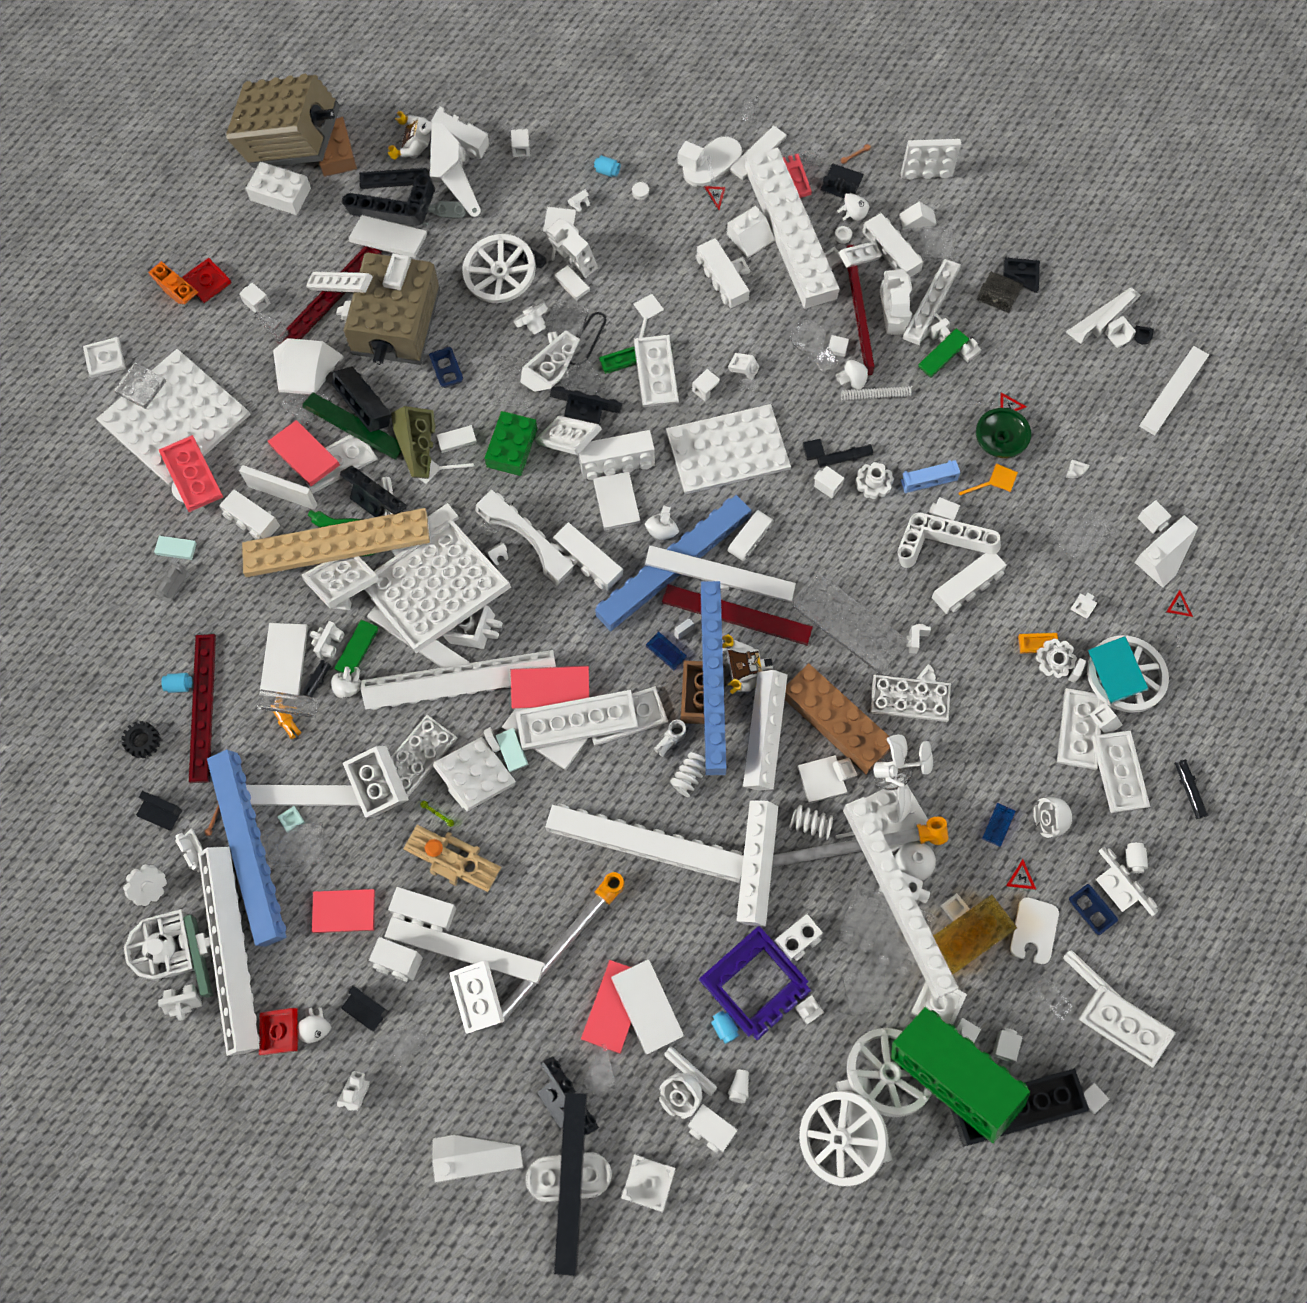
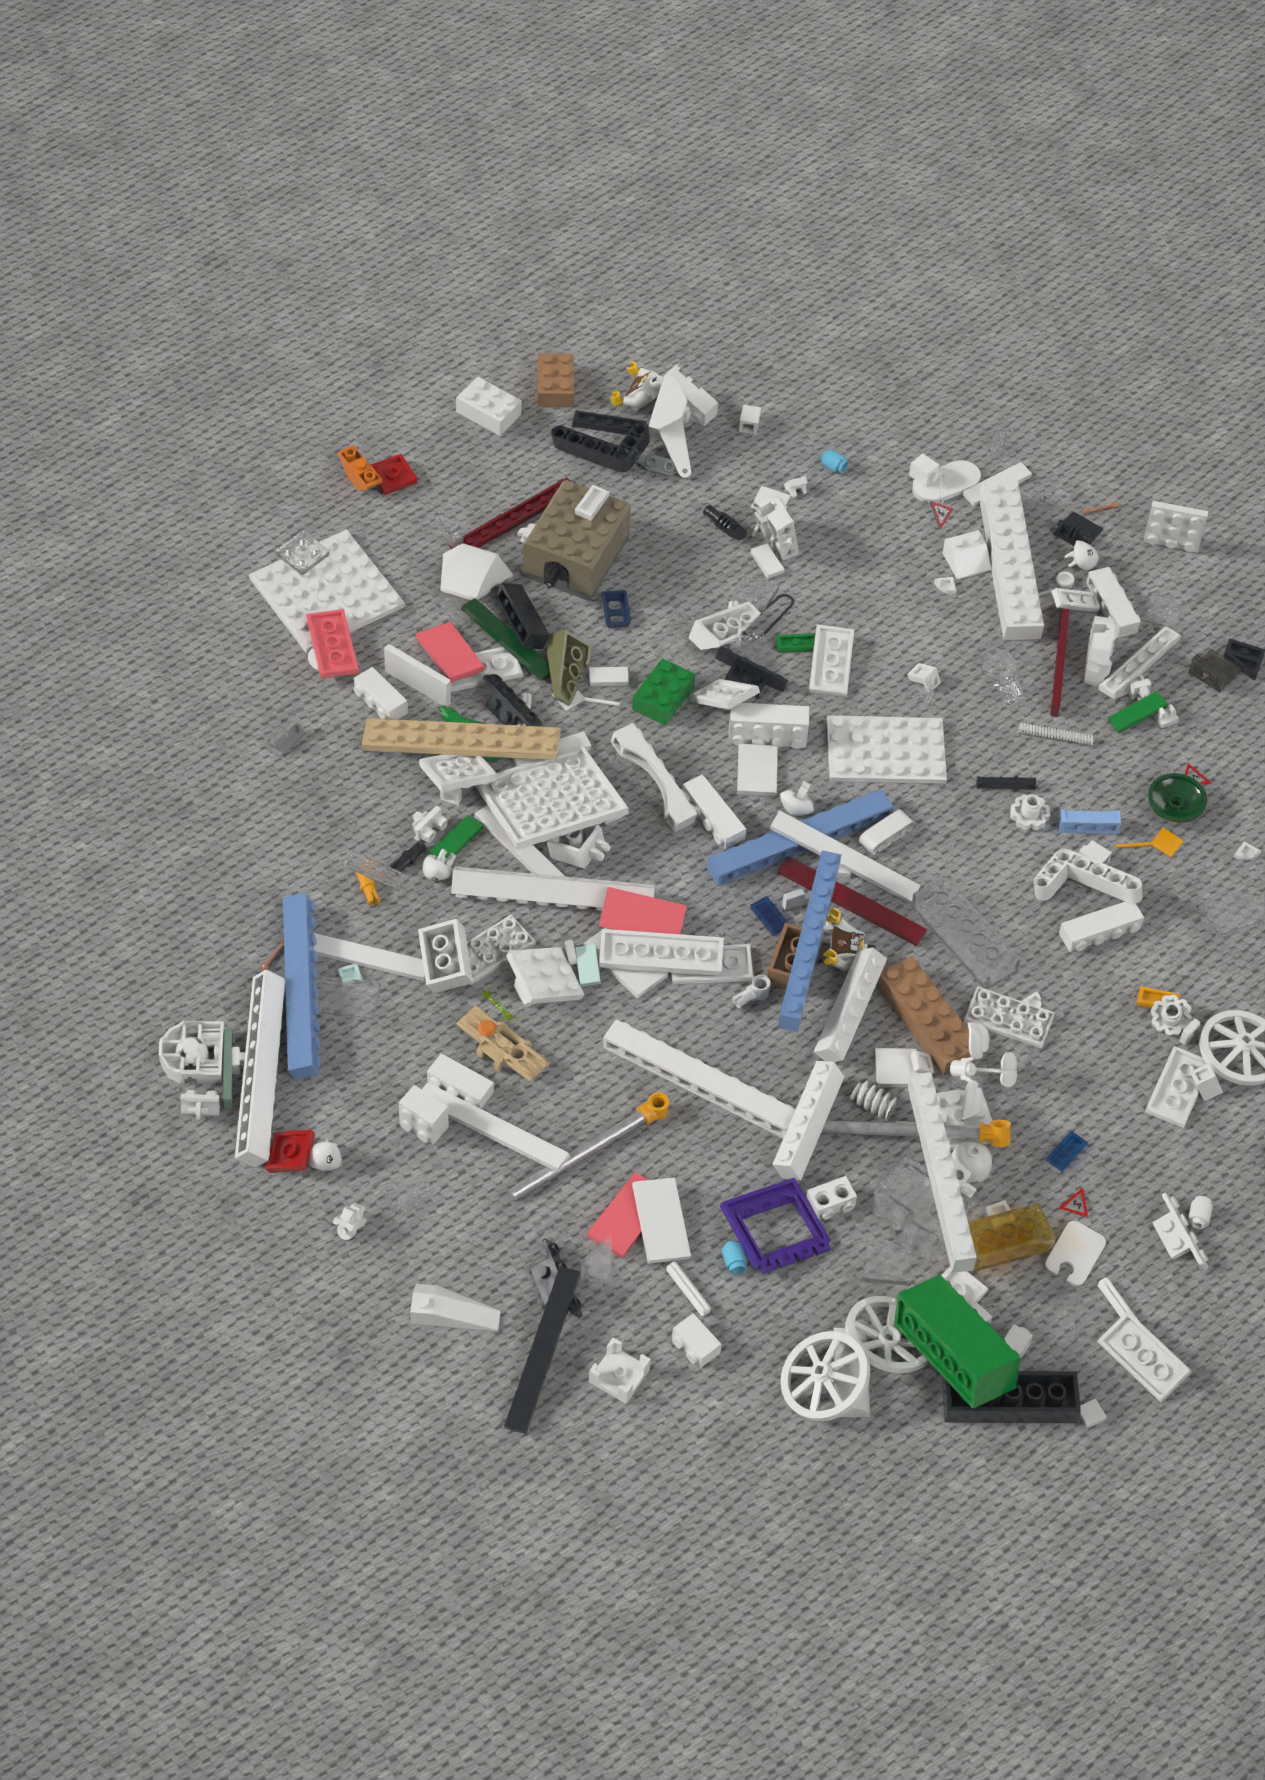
camera: 10 degrees right, 15 degrees down
(104, 357) = (270, 521): white tile -> none
(133, 732) = (220, 859): black tyre -> none
(145, 885) = (193, 992): white plant -> none
(158, 811) = (221, 934): black panel -> none
(175, 547) = (298, 708): light aqua tile -> none
(176, 682) = (269, 827): medium azure brick -> none
(190, 844) = (246, 972): white hinge -> none
(202, 708) = (287, 857): dark red tile -> none
(254, 298) = (437, 501): white brick -> none
(283, 121) = (512, 342): dark tan piece -> none
(284, 658) = (382, 829): white tile -> none
(339, 281) = (529, 501): white tile -> none
(343, 911) = (380, 1066): coral tile -> none
(364, 1009) = (379, 1154): black panel -> none
(388, 236) = (587, 473): white tile -> none
(476, 997) = (494, 1168): white plate -> none
(495, 551) = (623, 785): white tile -> none
(497, 267) = (695, 531): white wheel -> none
(532, 318) = (717, 583): white plant -> none
(546, 1177) = (519, 1341): white tile -> none
(640, 190) = (862, 492): white tile -> none
(647, 308) = (839, 602): white piece -> none
(680, 1095) = (673, 1300): white cylinder -> none
(688, 773) = (761, 1028): white piece -> none
(704, 384) = (877, 683): white panel -> none
(722, 273) = (926, 587): white brick -> none
(739, 1088) = (732, 1315): white cone -> none
(798, 175) = (1032, 514): coral hinge -> none
(809, 1010) = (824, 1265): white tile -> none
(813, 449) = (974, 769): black tile -> none
(828, 481) = (982, 802): white brick -> none
(838, 345) = (1029, 681): white tile -> none
(855, 373) = (1038, 708): white piece -> none
(914, 633) = (1033, 957): white bracket -> none
(917, 216) = (1149, 580): white slope -> none
(1055, 813) = (1126, 1149): white cylinder -> none
(1084, 605) = (1215, 975): white tile -> none
(1098, 905) = (1147, 1248): dark blue piece -> none
(1118, 669) = (1230, 1036): teal tile -> none
(1120, 771) = (1207, 1133): white tile -> none

